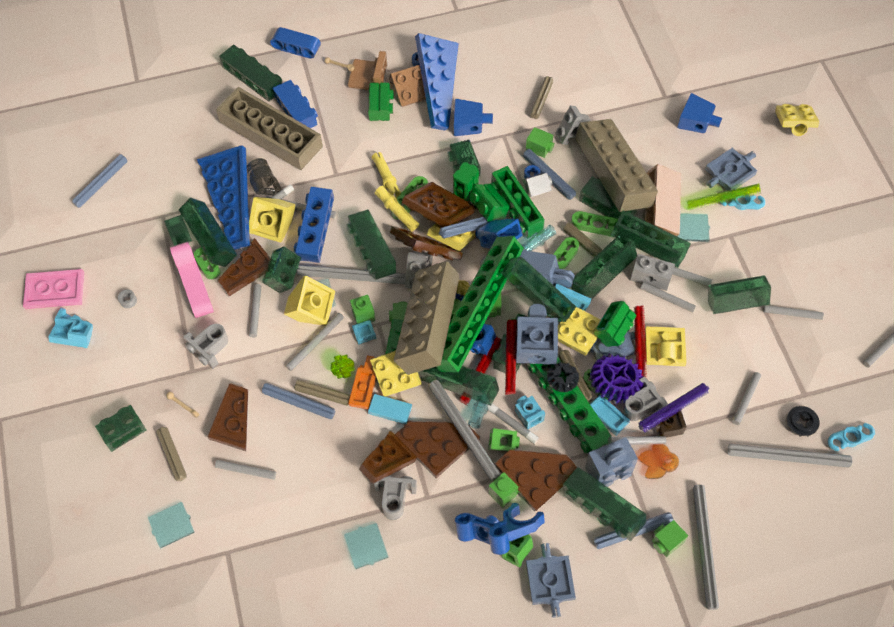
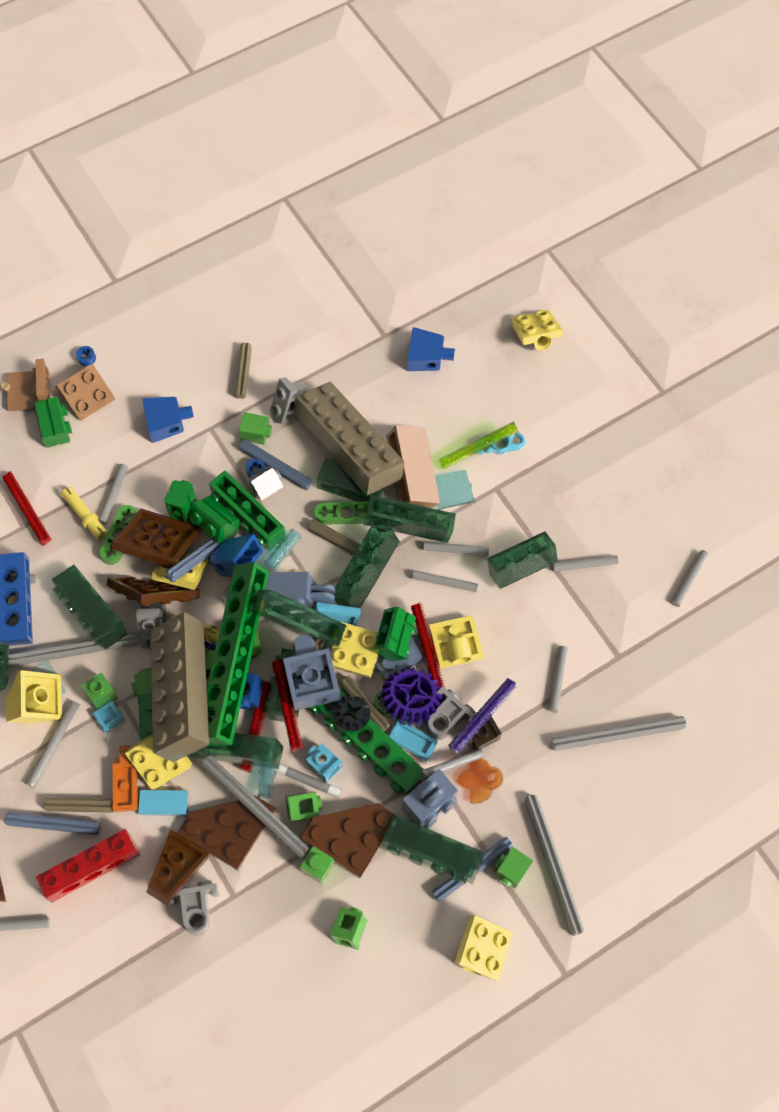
camera: 20 degrees left, 5 degrees up
(317, 439) = (87, 865): none -> red brick
(342, 161) = (26, 507): none -> red axle
(342, 366) = (93, 767): clear neon green gear -> none
(366, 546) = (178, 975): clear light blue piece -> none
(400, 212) = (102, 551): light yellow pin -> none
(412, 166) = (112, 494): none -> light grey bar
(438, 69) = (112, 366): wing -> none
(462, 152) = (169, 468): clear green brick -> none
(497, 532) = (322, 919): blue piece -> none
(550, 580) = (396, 955): sand blue plate -> none
(568, 255) = (322, 558): bright green beam -> none
(627, 595) = (483, 948): none -> light yellow plate
(652, 271) = (421, 556): light grey brick -> none
(731, 169) = (478, 409): sand blue plate -> none
(806, 414) = (625, 679): black gear -> none
(841, 436) = (683, 684): medium azure piece -> none

